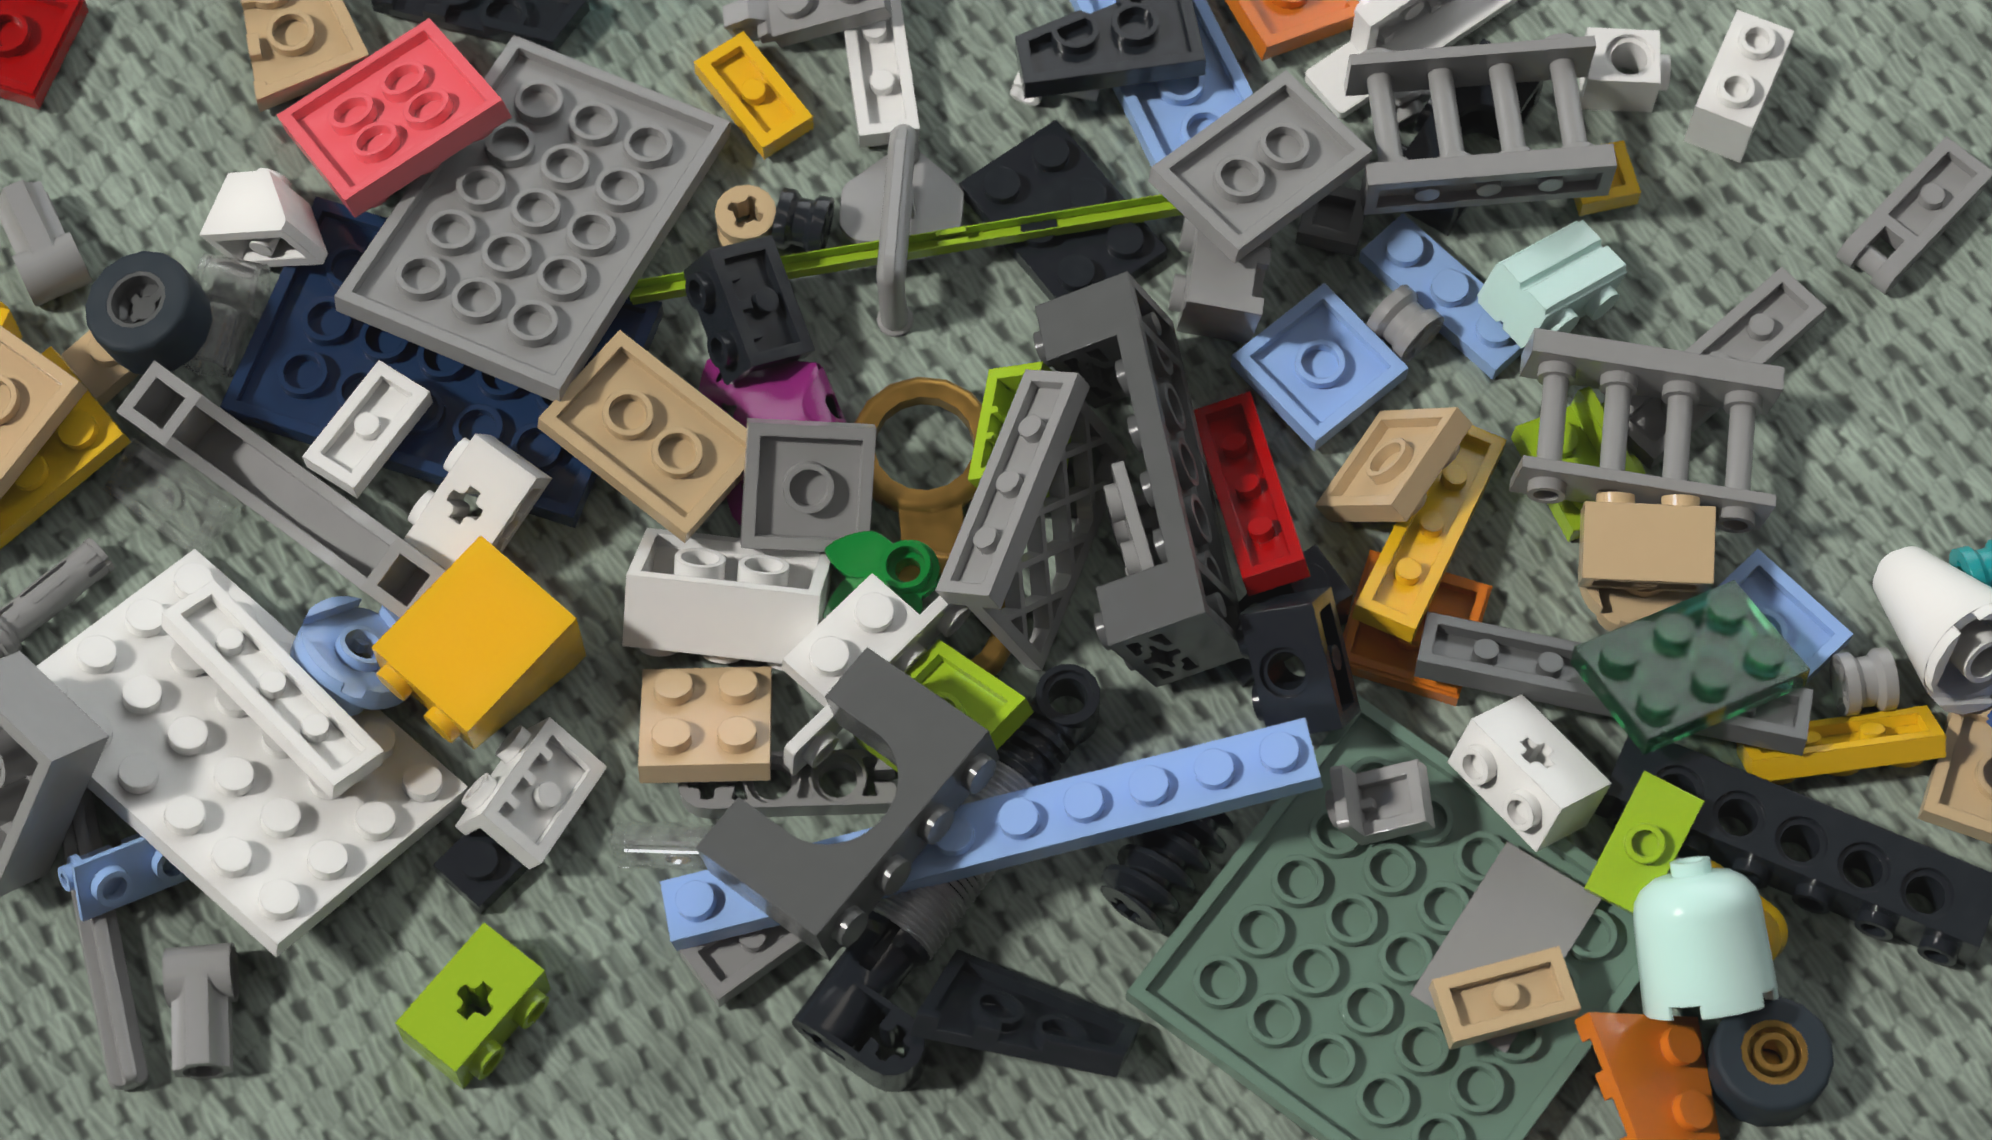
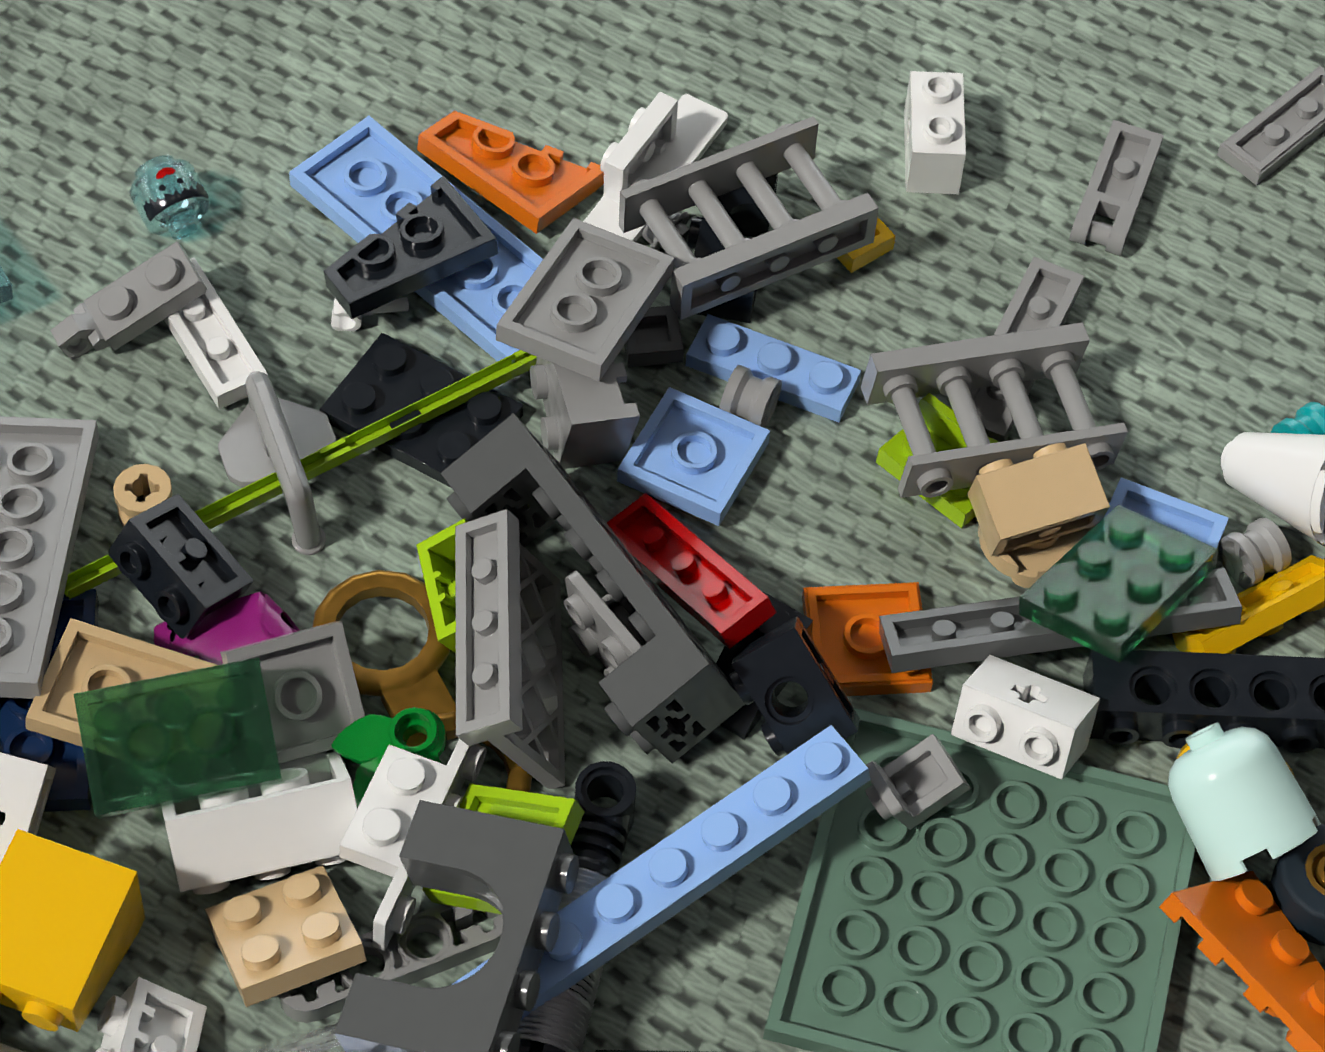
camera: 25 degrees left, 10 degrees down
(672, 493) = (177, 737): none -> clear green plate
(753, 95) = (107, 394): yellow plate -> none
(802, 221) = (196, 479): black wheel -> none
(1157, 865) = (746, 911): black piece -> none
(1394, 465) = (797, 509): tan plate -> none
(1425, 544) = (848, 553): yellow plate -> none
(1504, 997) = (1094, 908): tan plate -> none
(1512, 913) = (1071, 870): light grey sticker -> none
(1553, 283) = (859, 321): light aqua brick -> none
(1629, 49) = (845, 147): white brick -> none
(1643, 841) = (1147, 739): lime plate -> none

